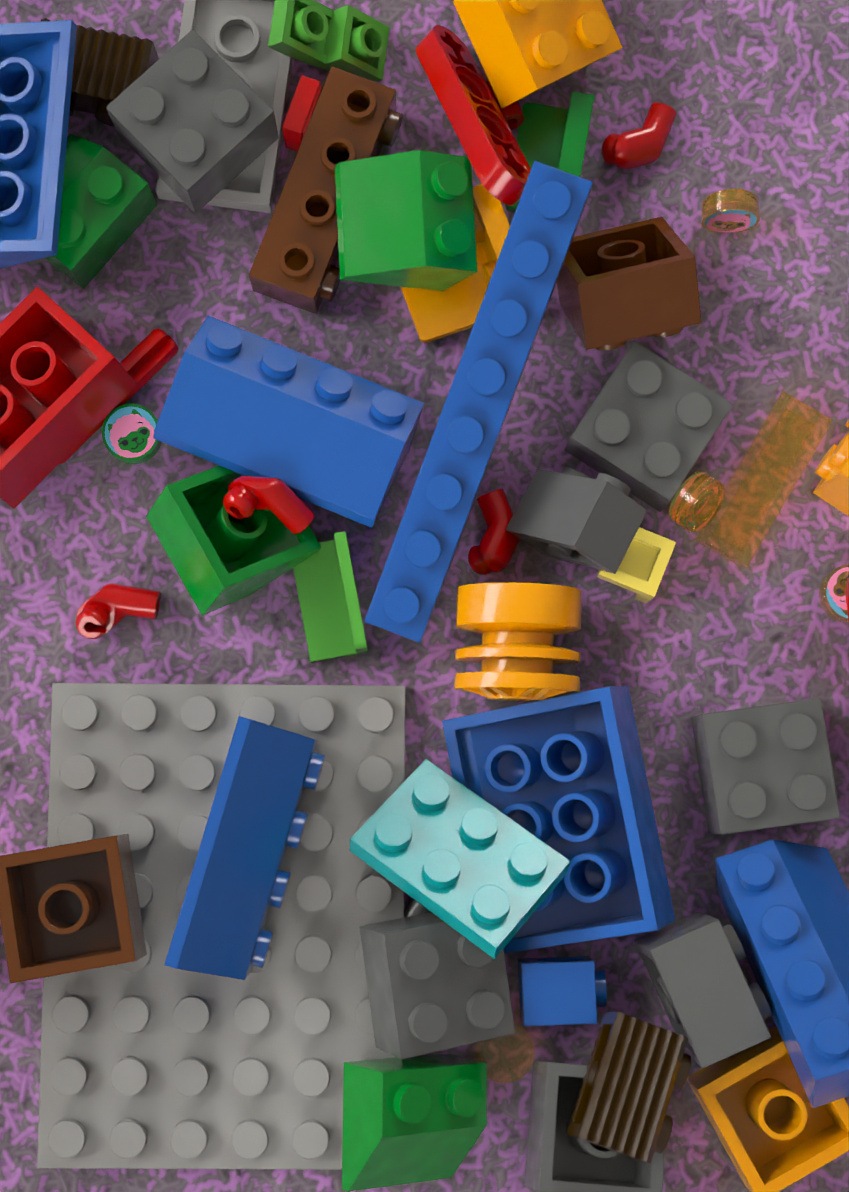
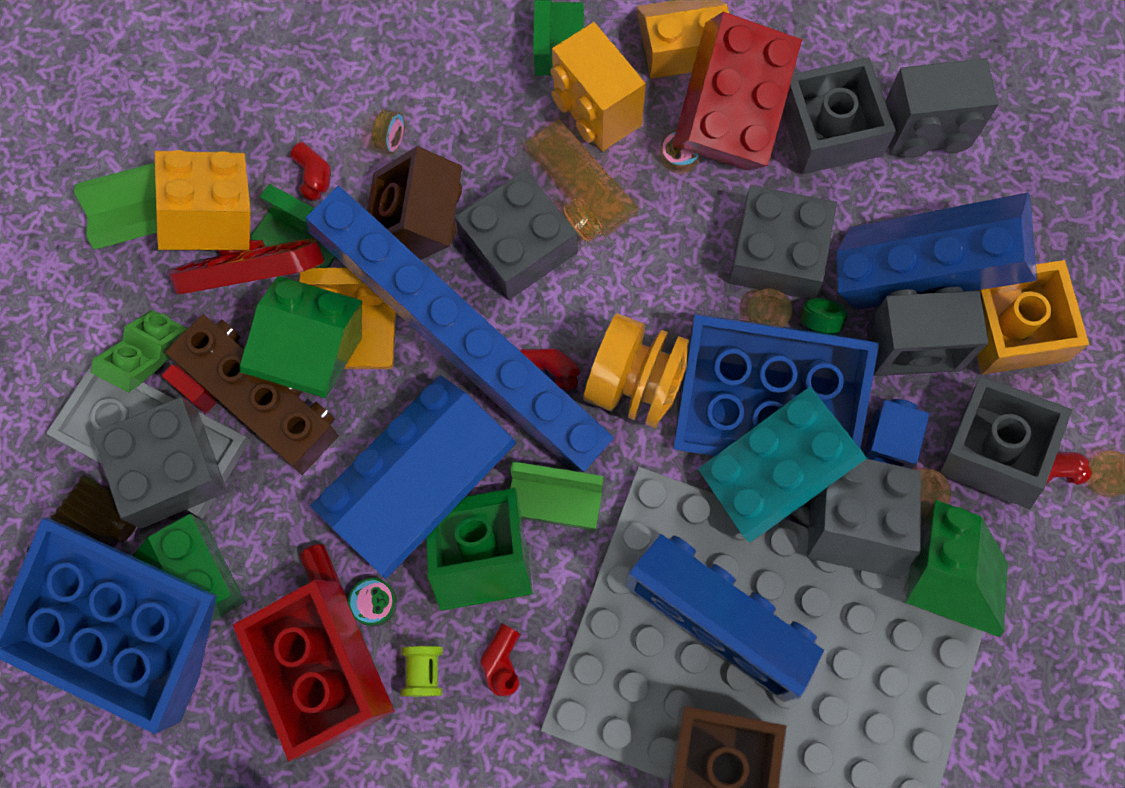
camera: 60 degrees left, 10 degrees down
(70, 521) = (421, 671): none -> lime bush
(267, 494) = (459, 514): red arm -> none
(578, 518) = (565, 298): dark grey brick -> none
(630, 1087) = (986, 399): dark brown brick -> none
(642, 565) = (608, 272): light yellow panel -> none
(672, 780) = (769, 307): none -> clear yellow tile
(686, 851) = (823, 315): none -> green tile

